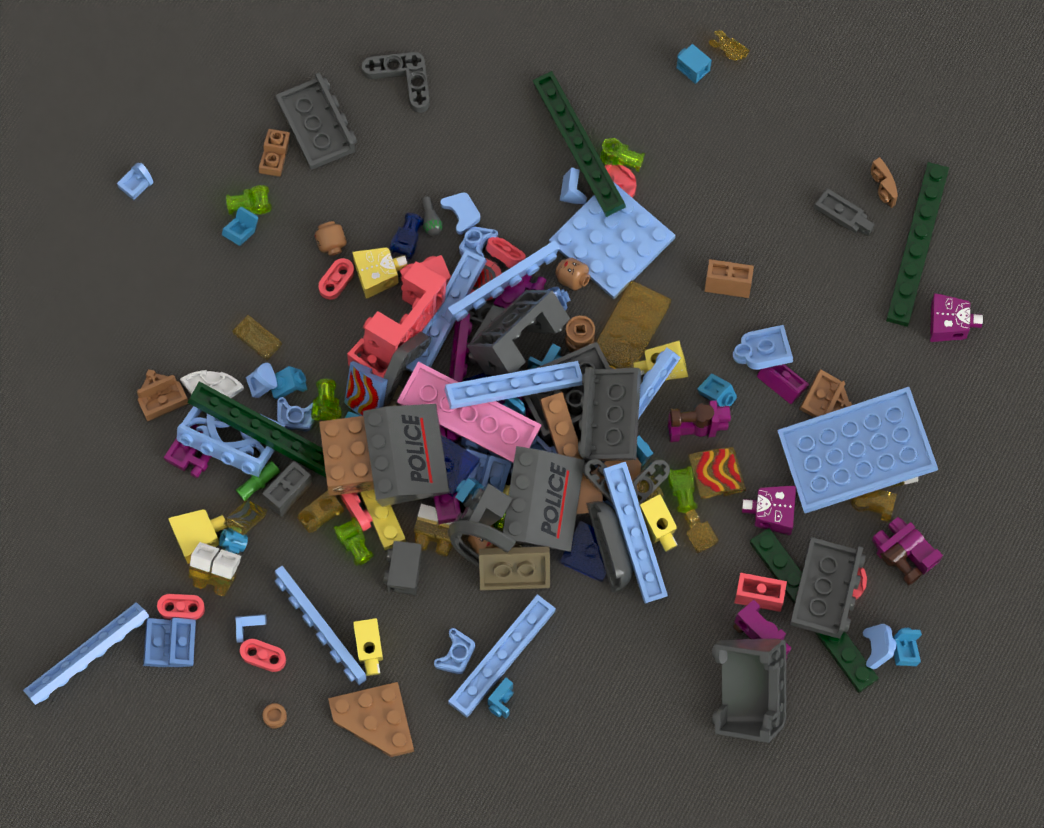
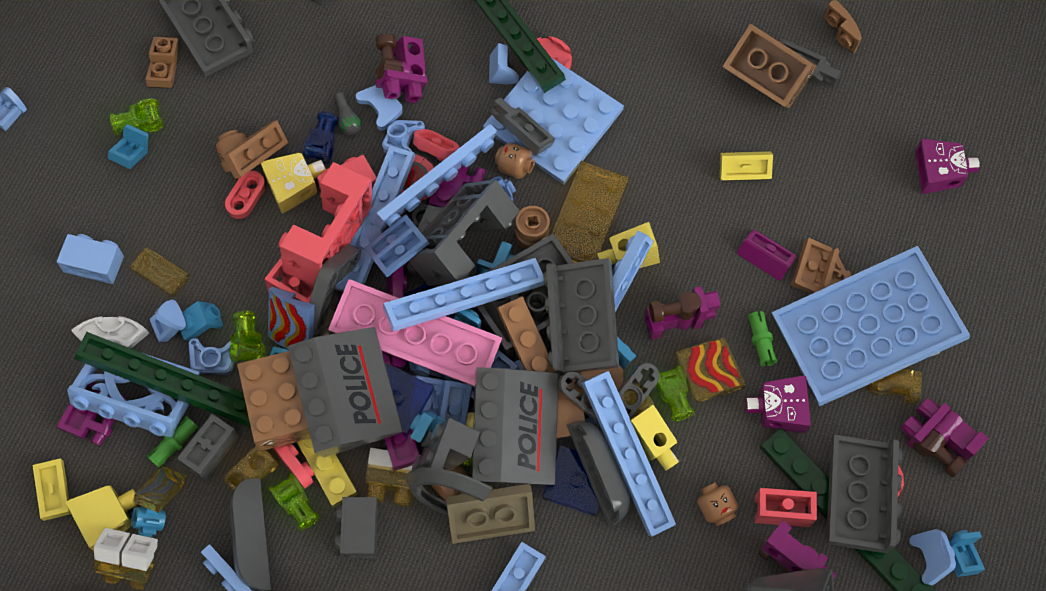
camera: 10 degrees left, 0 degrees up
(156, 508) = (51, 489): none -> light yellow plate
(160, 395) = (48, 352): medium nougat slope -> none
(200, 319) = (90, 258): none -> light blue brick
(315, 562) = (249, 535): none -> dark grey brick
(348, 241) = (254, 150): none -> medium nougat plate
(461, 337) = (396, 245): none -> medium blue slope
(486, 185) = (404, 73): none -> magenta hips
(582, 245) = (522, 126): none -> dark grey hinge
(620, 154) = (550, 25): clear neon green connector -> none
(700, 534) = (703, 444): clear yellow plate -> none
(705, 583) = (717, 504): none -> medium nougat head
(717, 389) = (696, 274): dark azure bracket -> none
(729, 278) = (690, 147): medium nougat hinge -> none
(764, 348) = (742, 221): light blue plate -> none
(765, 451) = (762, 339): none -> bright green pin
(776, 300) = (746, 165): none -> light yellow plate
(809, 213) = (769, 66): none -> medium nougat brick
(917, 244) = (889, 90): dark green plate -> none

